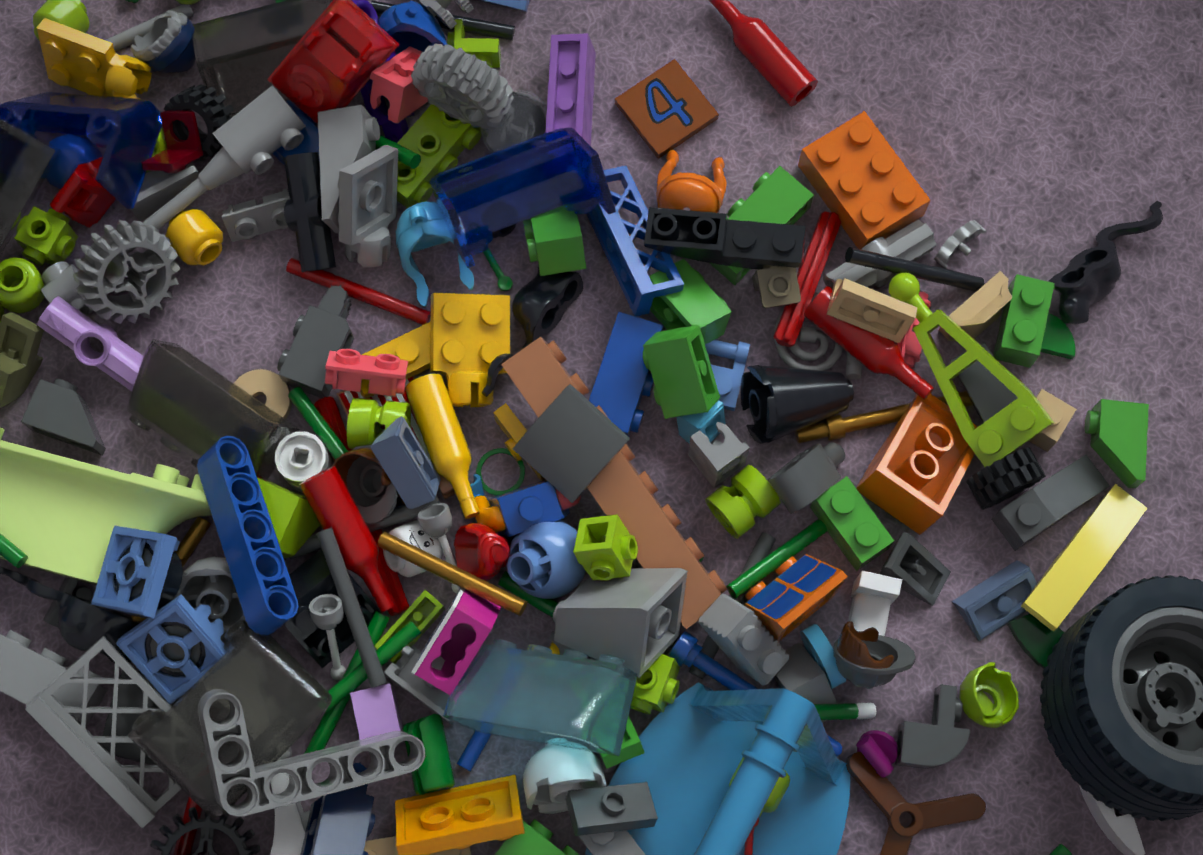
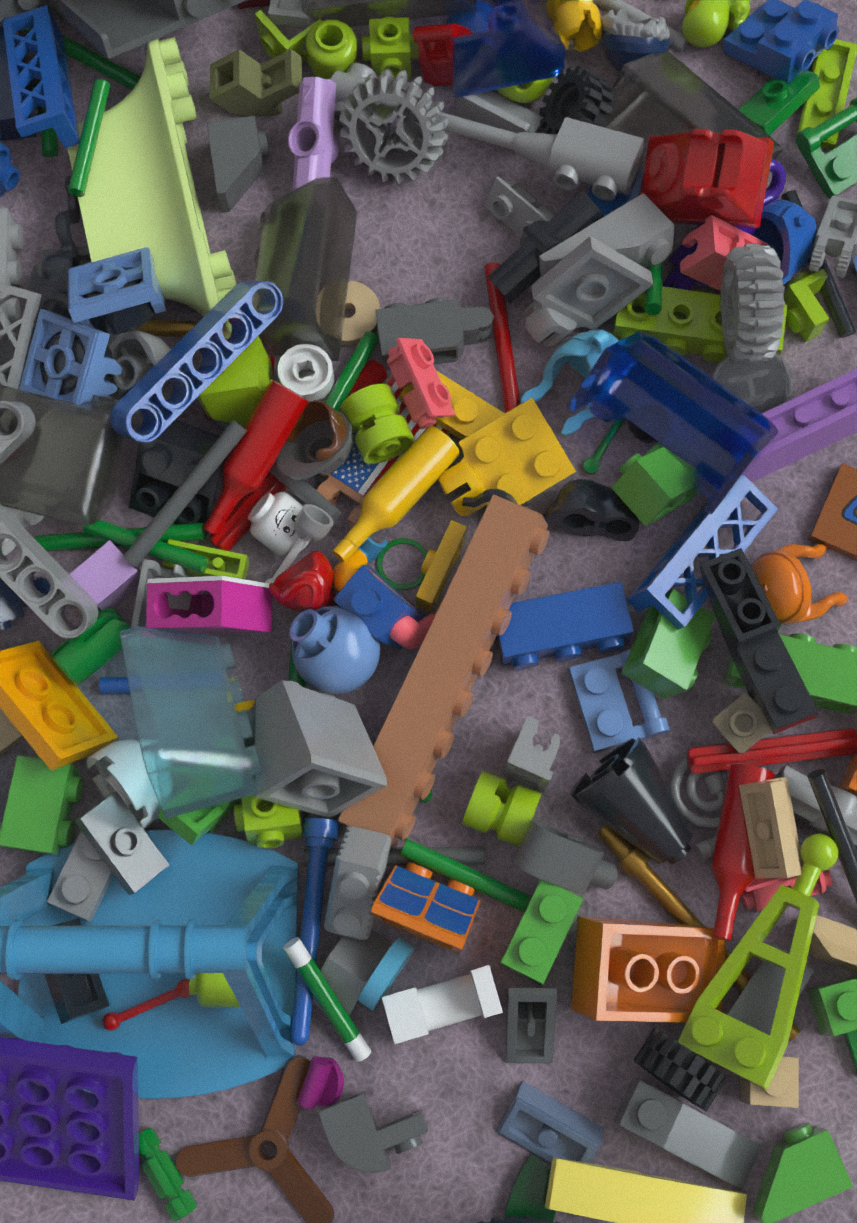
camera: 60 degrees right, 0 degrees up
(178, 151) = (539, 108): dark red bracket -> none
(195, 237) = (465, 168): yellow head -> none
(326, 613) = (167, 481): light grey hinge -> none
(406, 464) = (348, 465): sand blue slope -> none
(452, 573) = (265, 566): pearl gold bar -> none
(571, 443) = (452, 603): dark grey slope -> none
(605, 547) = (367, 693): lime brick -> none
(681, 371) = (594, 673): bright green brick -> none
(703, 421) = (558, 719): medium azure slope -> none
(869, 657) = (403, 1022): dark grey piece -> none
(979, 706) = (426, 1166): lime hair -> none

